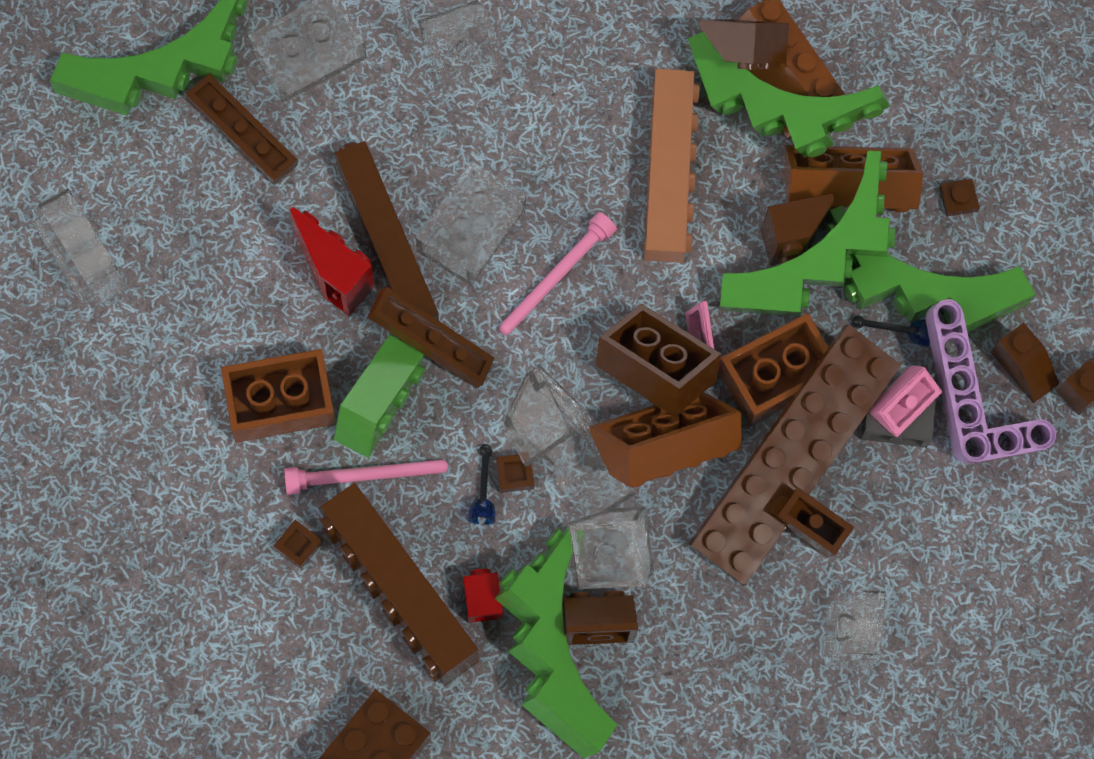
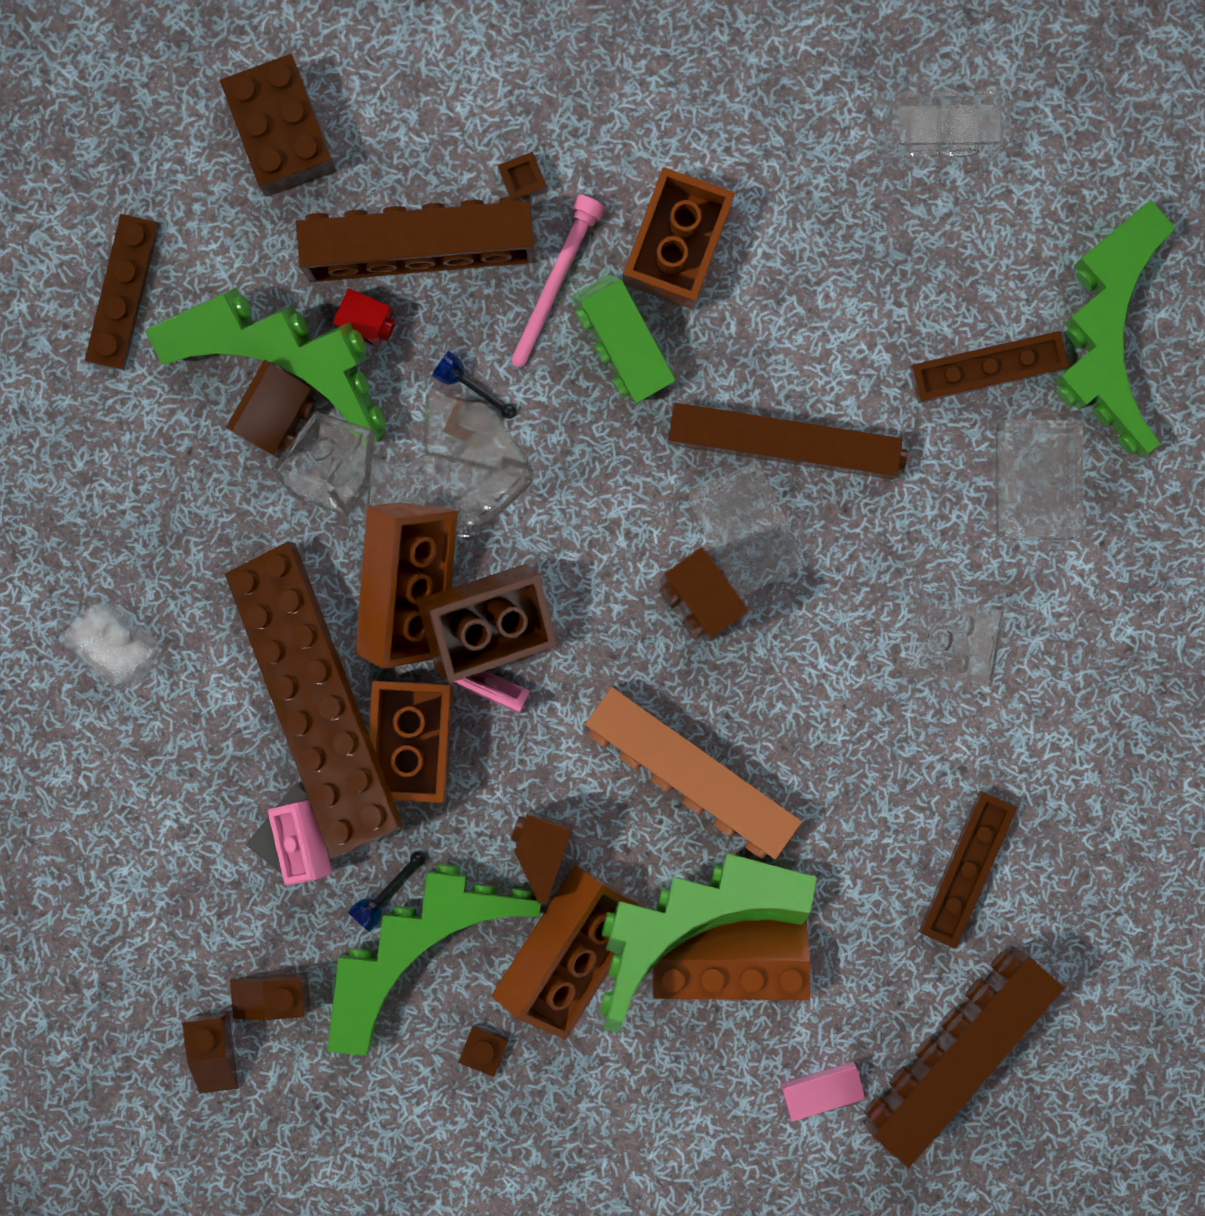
camera: 125 degrees right, 15 degrees up
(340, 273) = (783, 362): red slope -> none
(431, 337) = (646, 415): reddish brown plate -> none
(541, 217) = (702, 595): none -> reddish brown brick
(600, 228) = (666, 657): bright pink piece -> none
(748, 42) = (770, 929): reddish brown slope -> none
(815, 523) = (232, 674): reddish brown slope -> none
(859, 232) = (492, 908): bright green arch -> none
(970, 395) = (266, 910): lavender beam -> none

